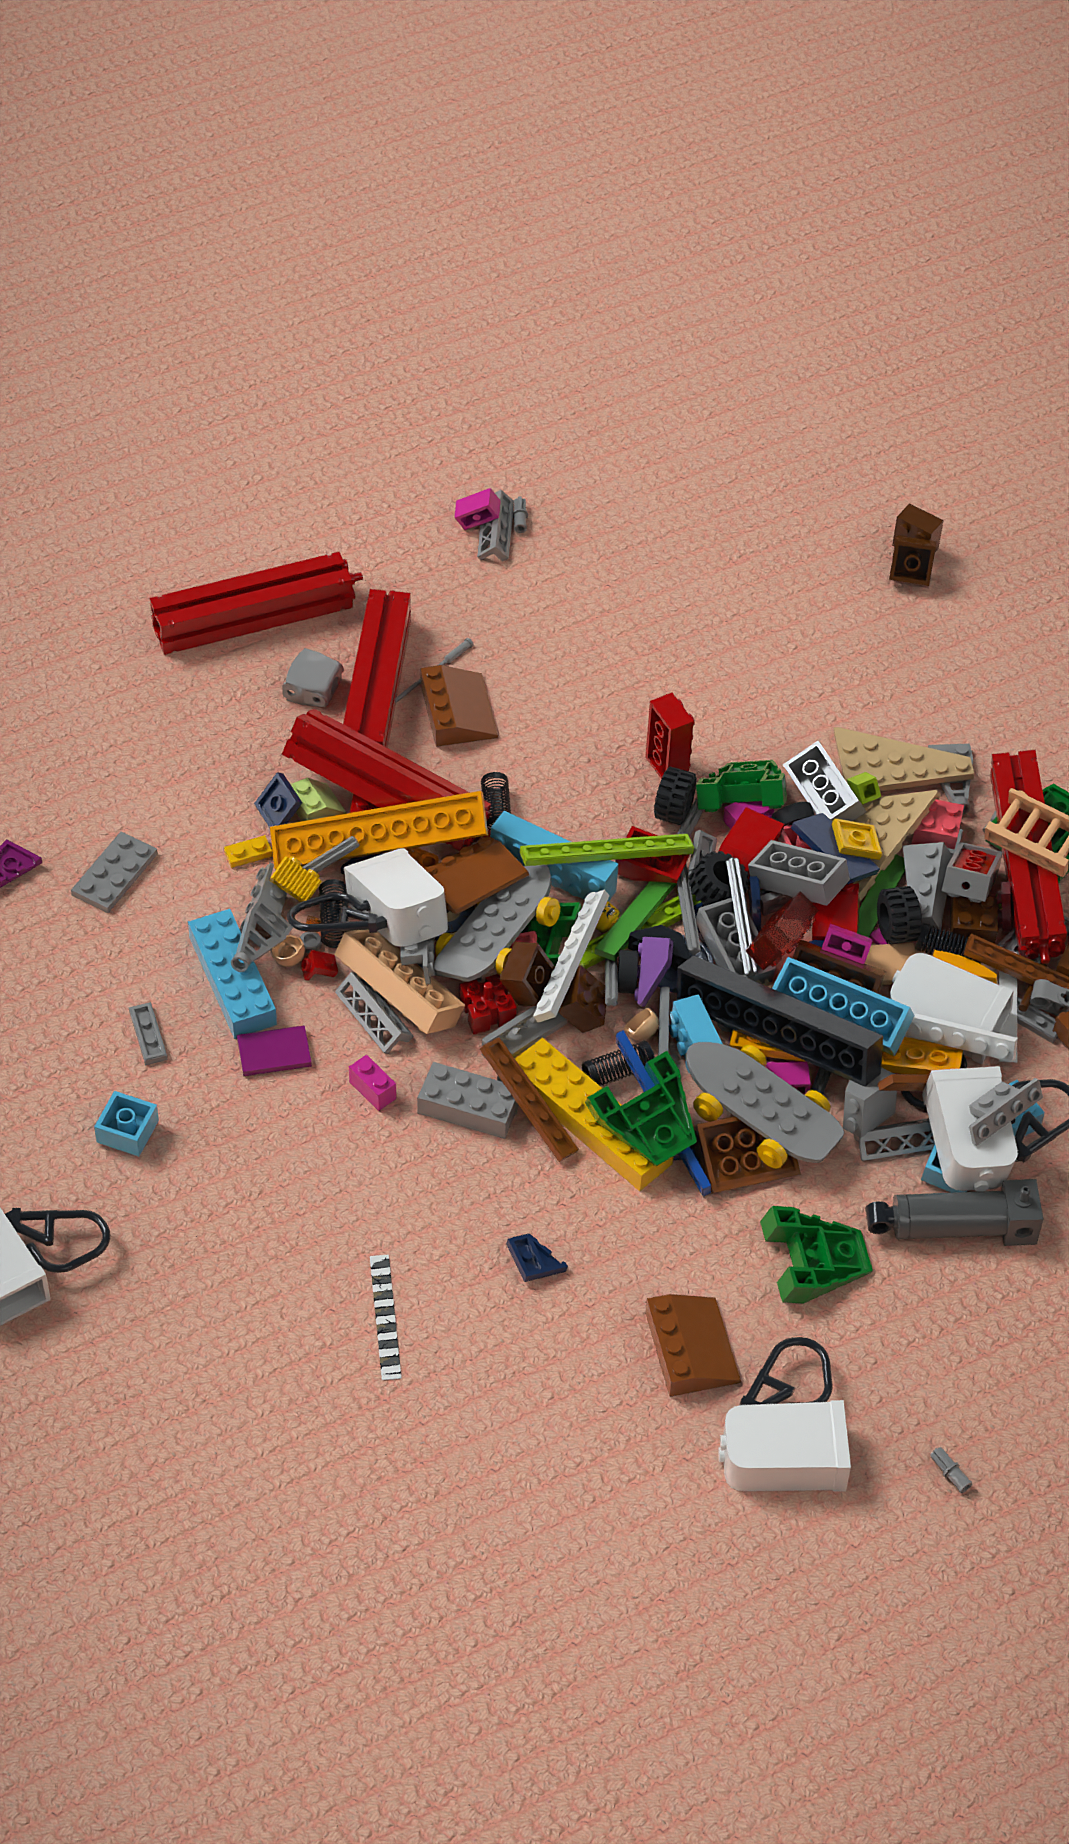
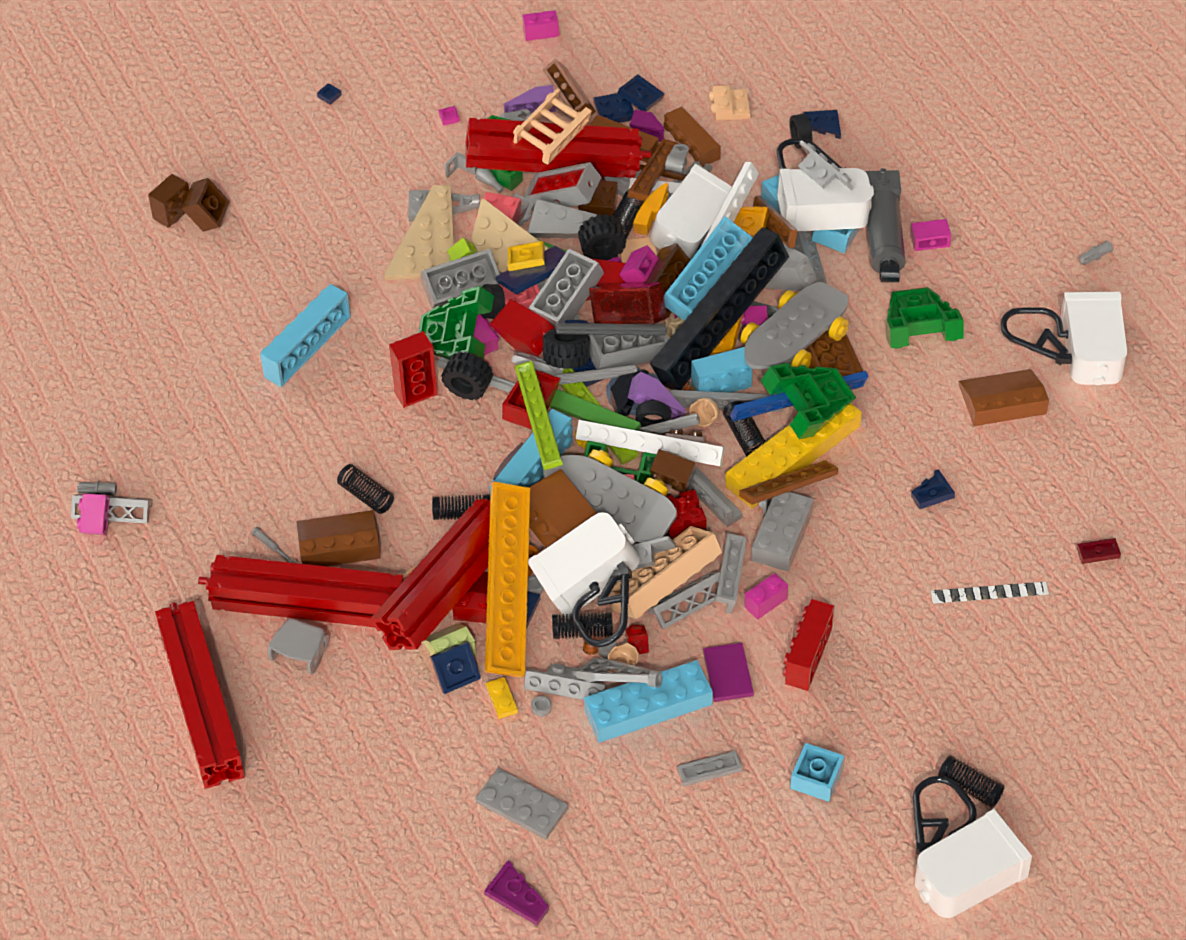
camera: 85 degrees left, 0 degrees up
(124, 1256) = (990, 800): none -> black piece
(236, 885) = (541, 706): none -> light grey tile
(295, 879) = (551, 648): yellow brick -> none
(296, 1117) = (809, 644): none -> red brick
(333, 855) = (530, 631): light grey axle -> none
(403, 1046) = (731, 570): none -> light grey fence
(442, 1434) = (1098, 551): none -> dark red plate
(520, 722) = (351, 479): none -> black piece
(729, 657) = (305, 335): none -> medium azure brick
(959, 1273) = (930, 235): none -> dark pink brick

